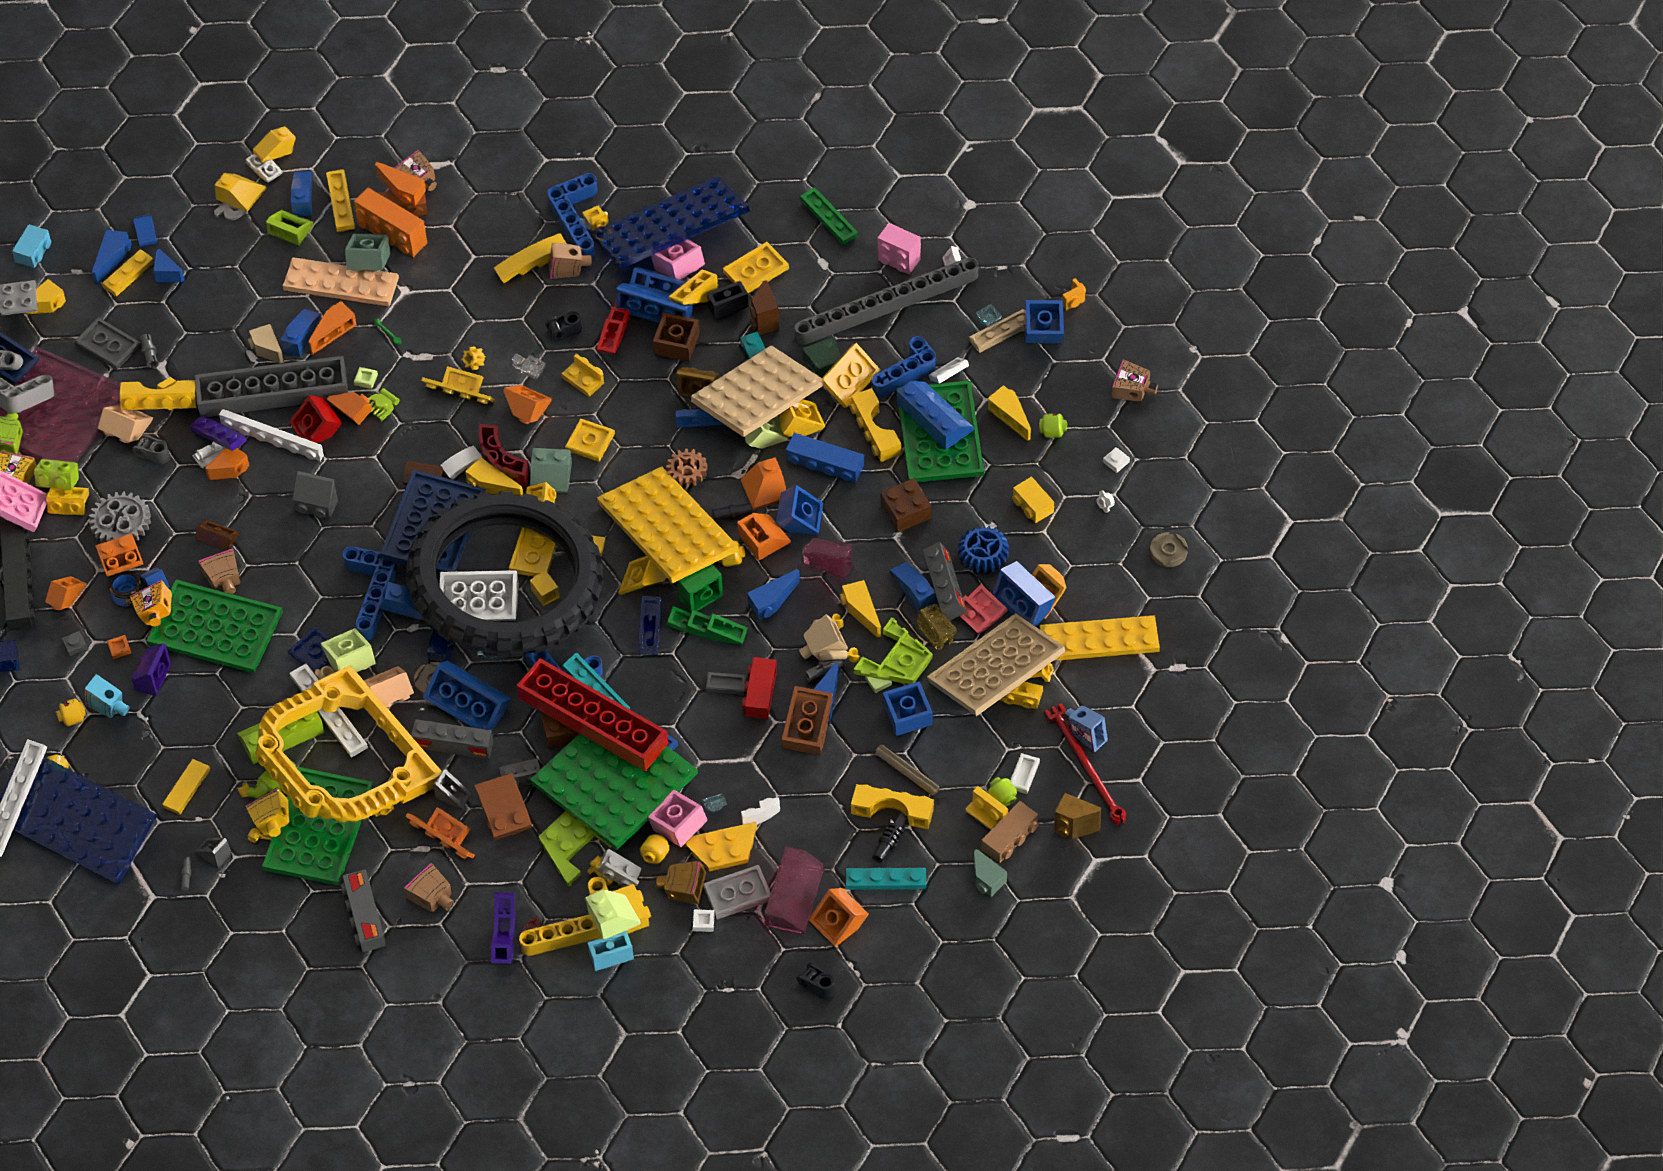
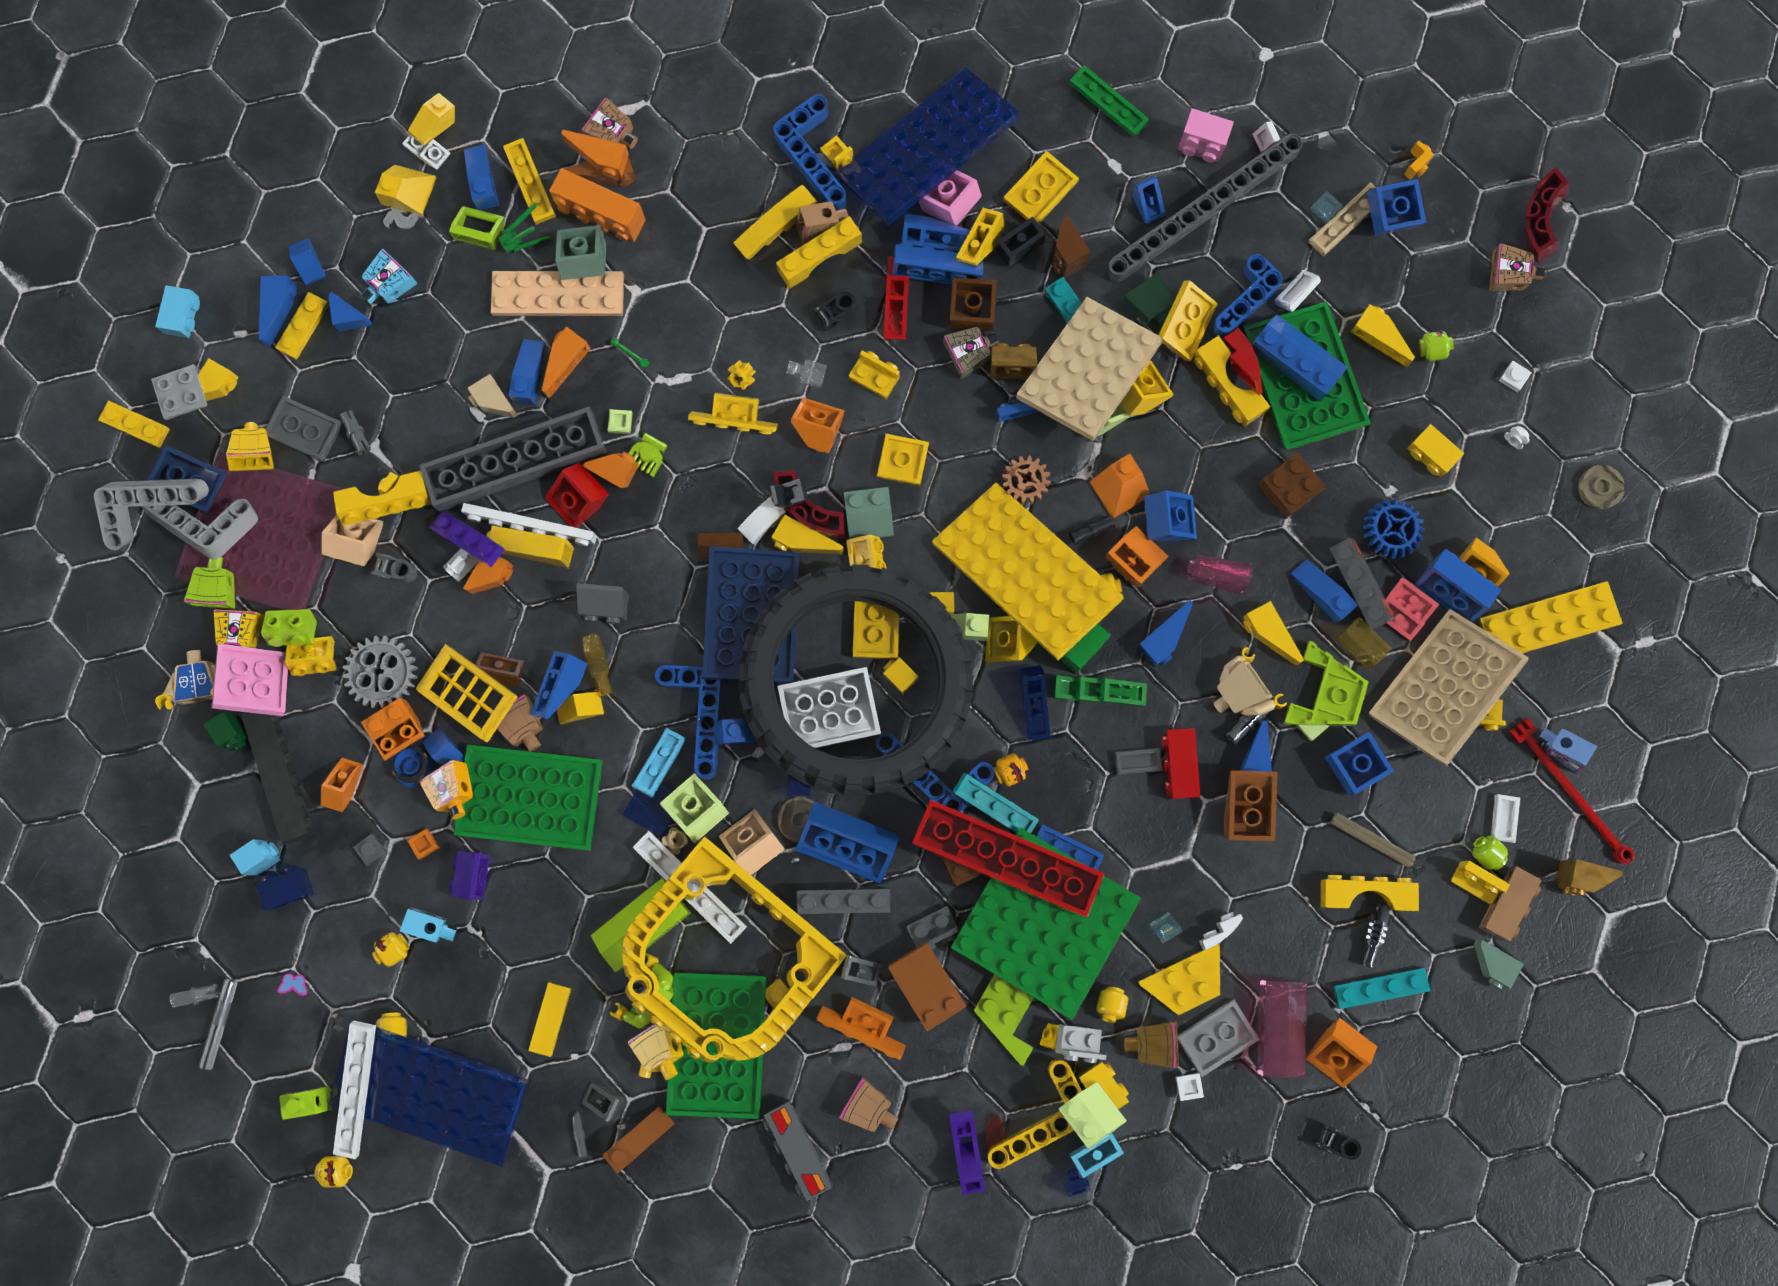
camera: 10 degrees left, 25 degrees up
(61, 346) = (249, 449): none -> yellow torso
(205, 249) = (386, 279): none -> medium azure torso
(205, 557) = (497, 714): none -> yellow piece
(232, 882) = (638, 1139): none -> dark orange slope
(266, 542) = (558, 683): none -> blue slope
(272, 450) = (533, 546): none -> yellow slope
(274, 569) = (580, 707): none -> yellow slope
(298, 541) = (597, 663): none -> clear yellow hinge
(313, 237) = (512, 240): none -> green plant
(328, 618) = (659, 762): none -> medium azure tile
(488, 437) = (789, 494): none -> black bracket
(542, 288) = (801, 262): none -> yellow arch
(588, 974) = (1076, 1184): none -> clear blue tile
(614, 562) = (973, 625): none -> yellowish green slope
(616, 668) = (1010, 770): none -> light orange head
(664, 369) = (969, 349): none -> dark tan torso
(677, 818) = (1131, 964): bright pink brick -> none
(824, 457) = (1182, 437): blue brick -> none
(842, 286) = (1149, 200): none -> blue slope
(888, 408) = (1244, 360): none -> red slope
(1165, 343) = (1540, 207): none -> dark red brick

